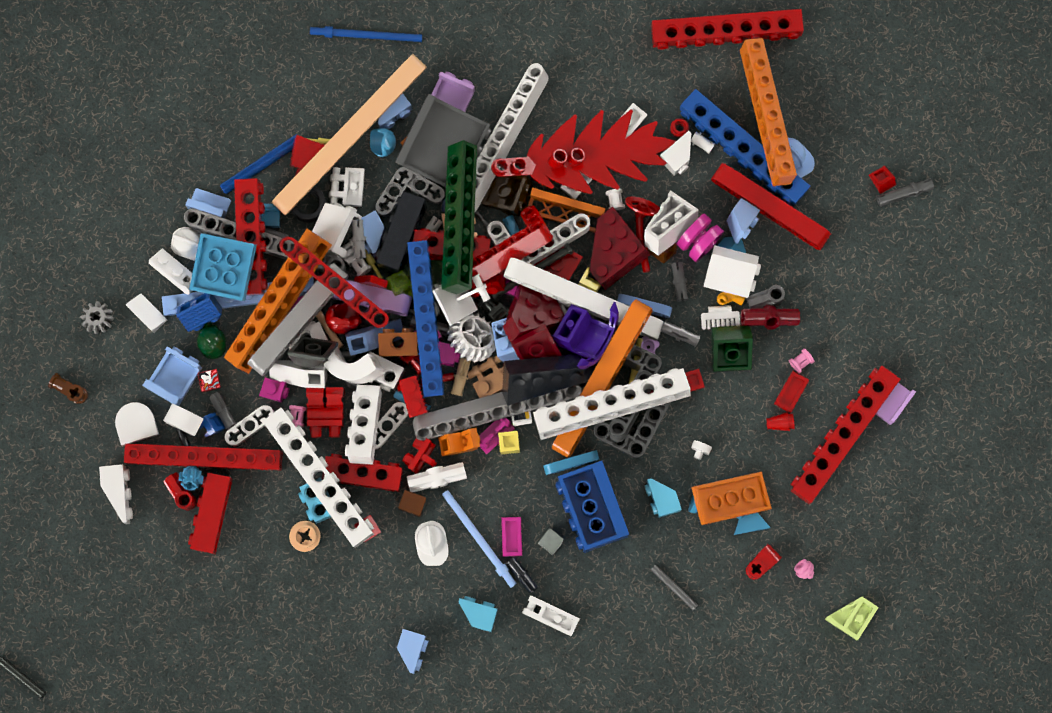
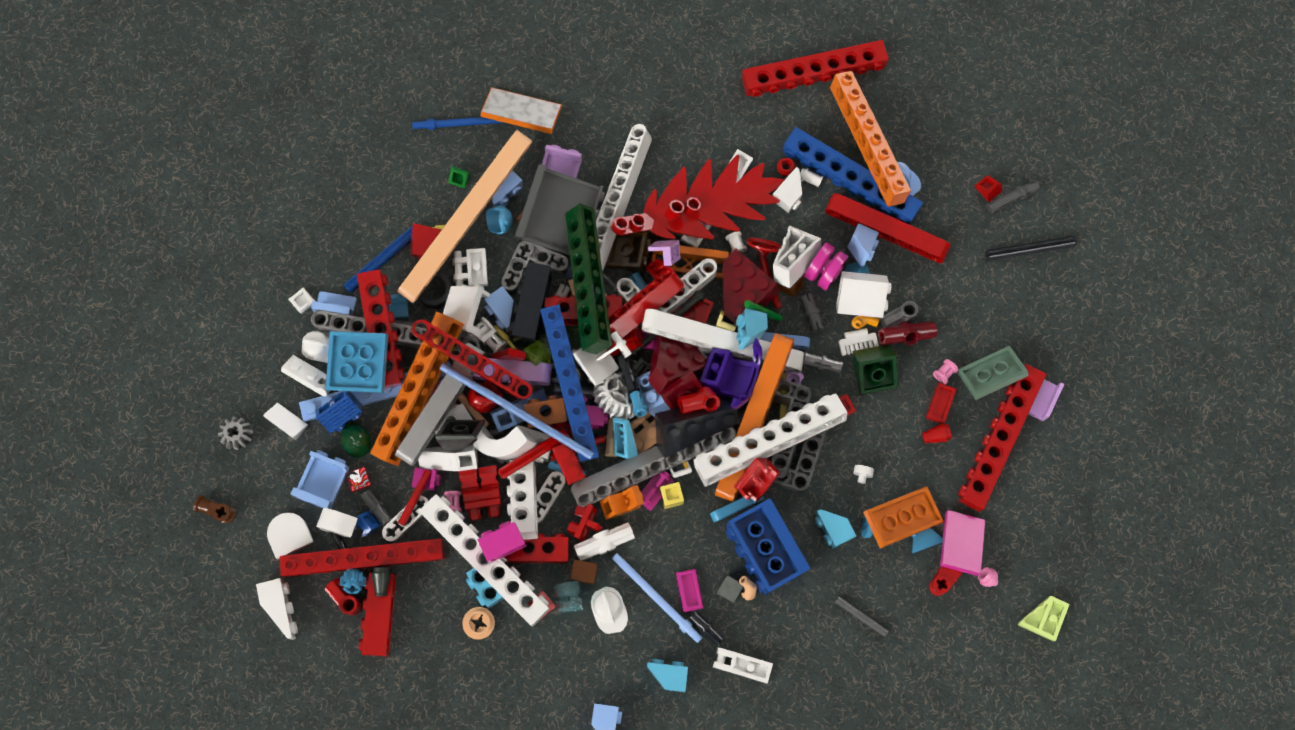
camera: 15 degrees left, 5 degrees down
(177, 195) = (301, 300): none -> white tile
(218, 480) = (381, 579): none -> pearl dark grey cone
(260, 407) = (414, 498): none -> red bar
(336, 463) = (501, 542): none -> dark pink brick
(349, 92) = (459, 177): none -> green slope
(358, 239) = (490, 316): light grey pin -> none
(370, 339) = (517, 411): none -> medium blue piece
(380, 382) = (529, 456): none -> red axle
(395, 518) = (566, 590): none -> clear light blue wheel
(421, 31) = (521, 110): none -> flat silver tile
(470, 381) = (623, 439): none -> medium azure slope
(485, 318) = (628, 374): none -> black pin
(489, 349) = (640, 408): none -> dark azure pin
(545, 199) = (670, 250): none -> lavender panel
(554, 354) = (703, 399): none -> red piece
(570, 543) = (749, 587): none -> light nougat arm
(592, 439) = (757, 479): none -> red hinge
(612, 289) = (750, 325): none -> medium azure slope
(629, 274) = (770, 314): none -> green bar
(785, 532) = (962, 543): none -> tile
(847, 369) = (992, 372): none -> sand green plate
(913, 248) = (1030, 248): none -> black axle

